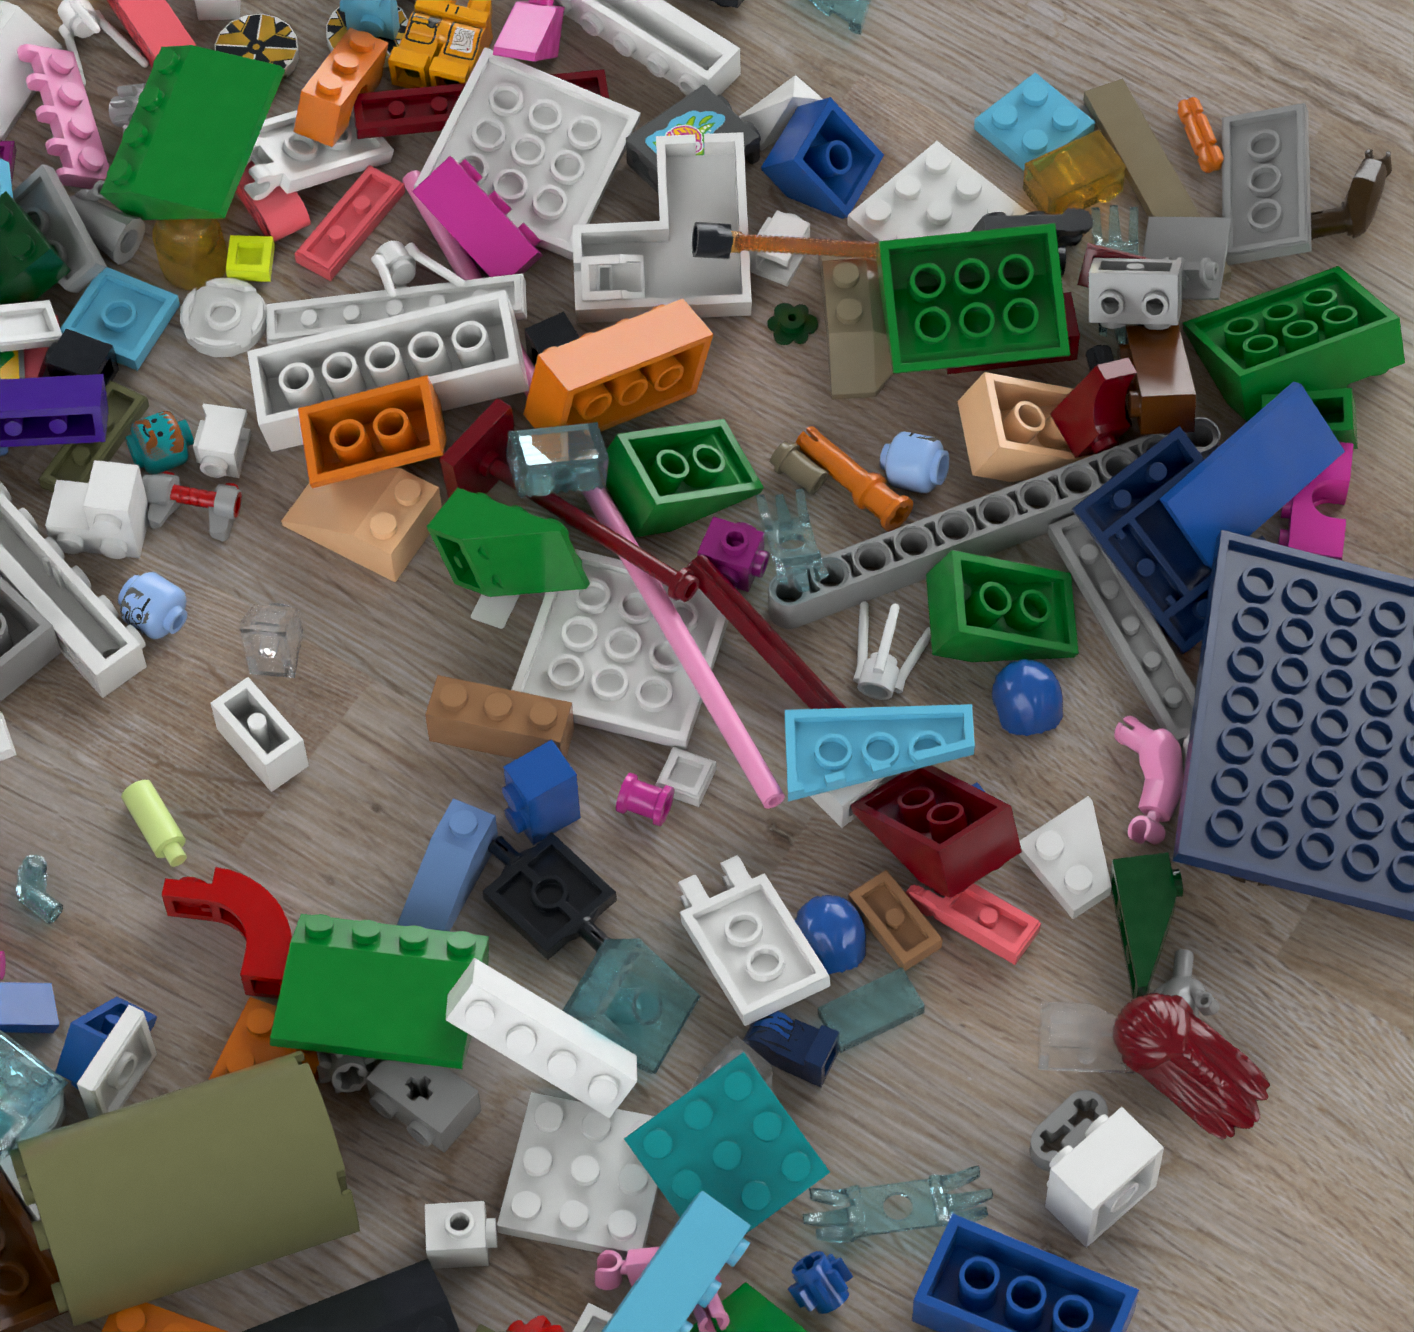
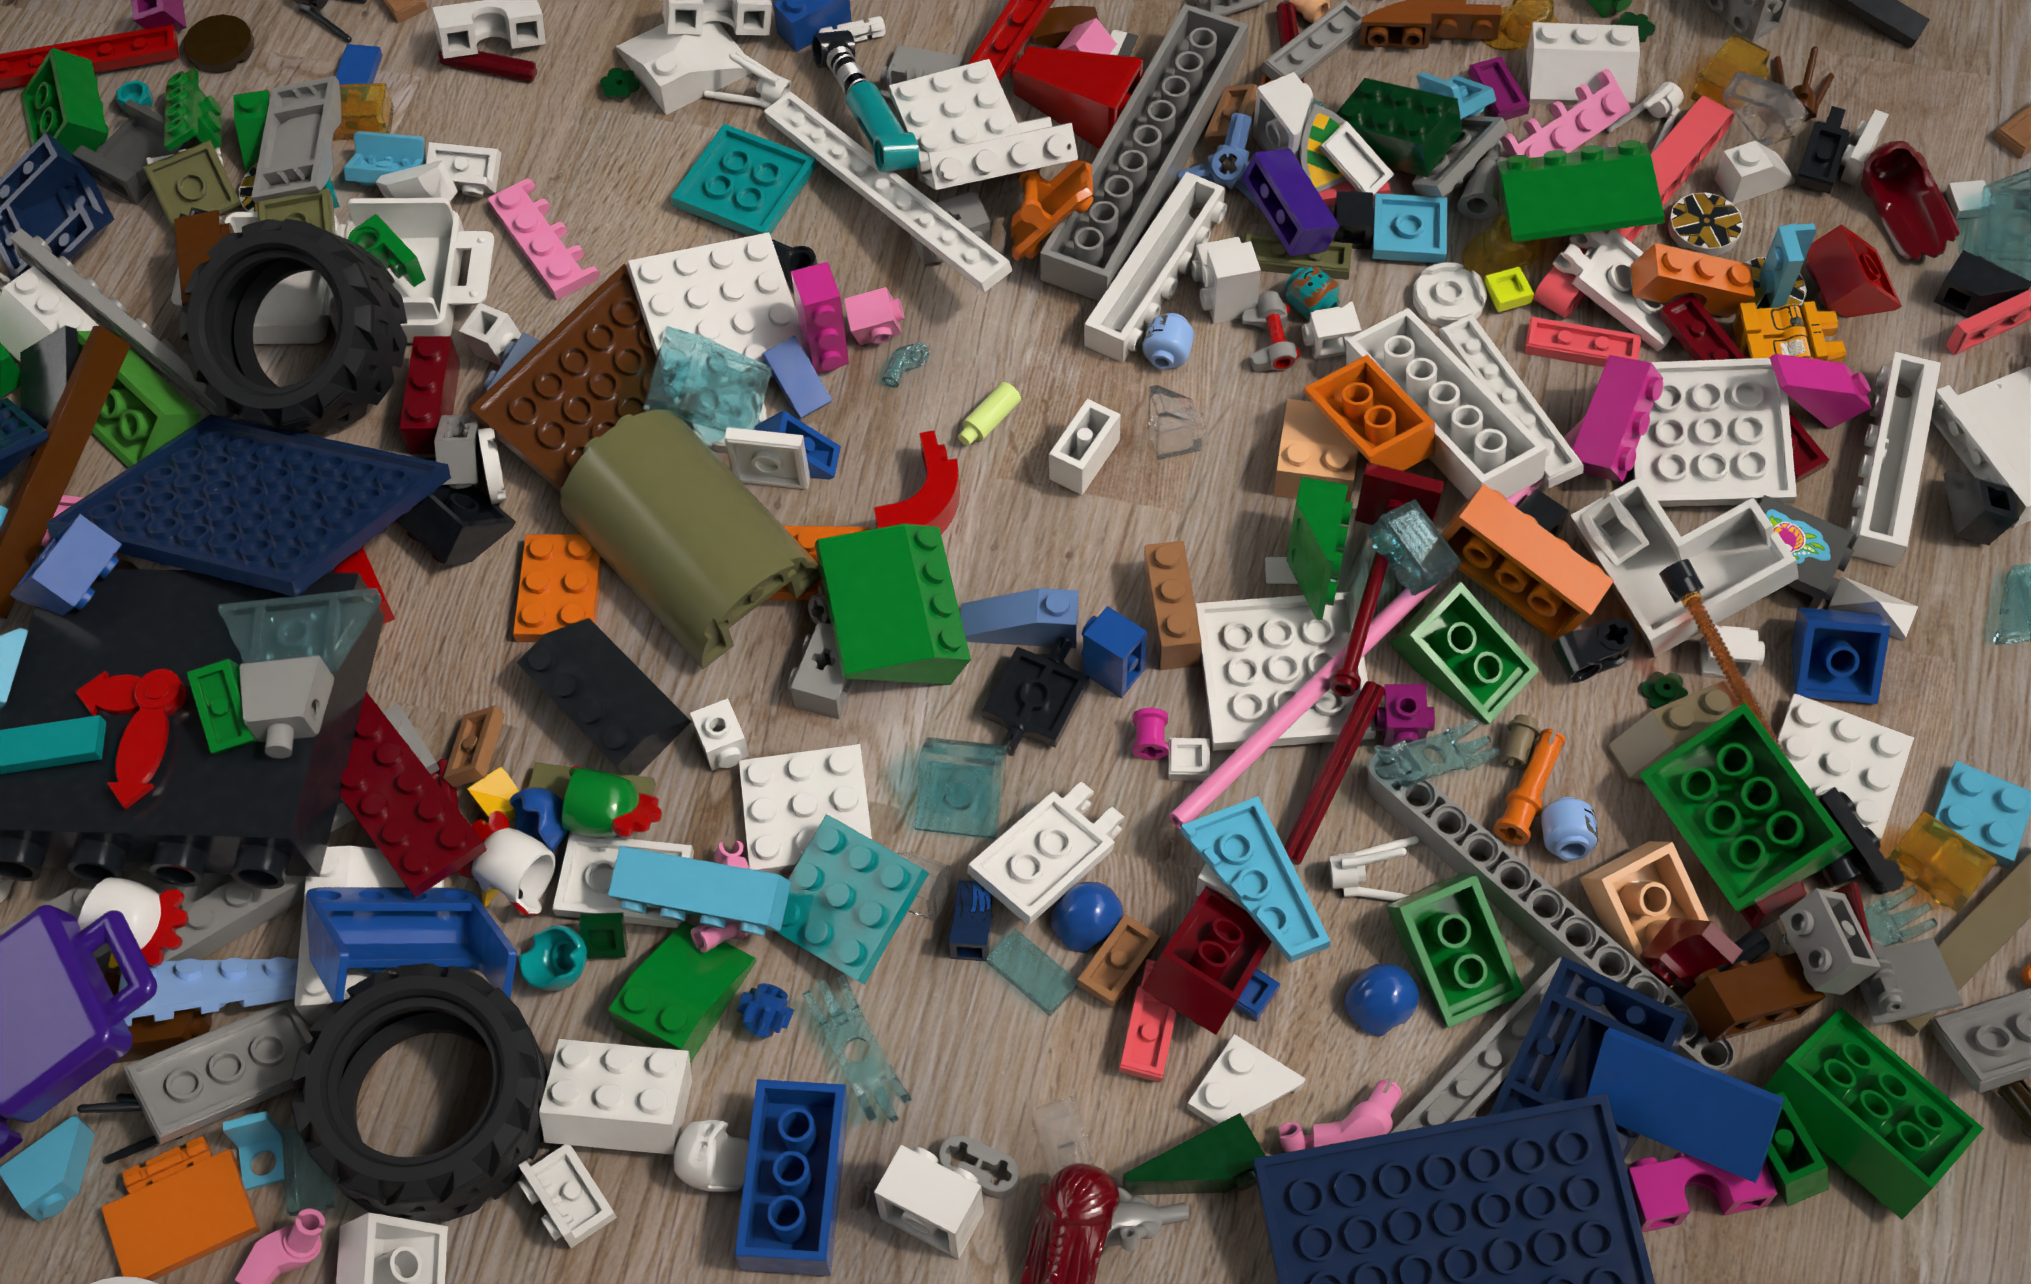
camera: 70 degrees right, 0 degrees up
(397, 266) = (1554, 384): white plant -> none
(541, 1038) = (886, 721): white brick -> none
(727, 362) = (1594, 649): none -> black piece

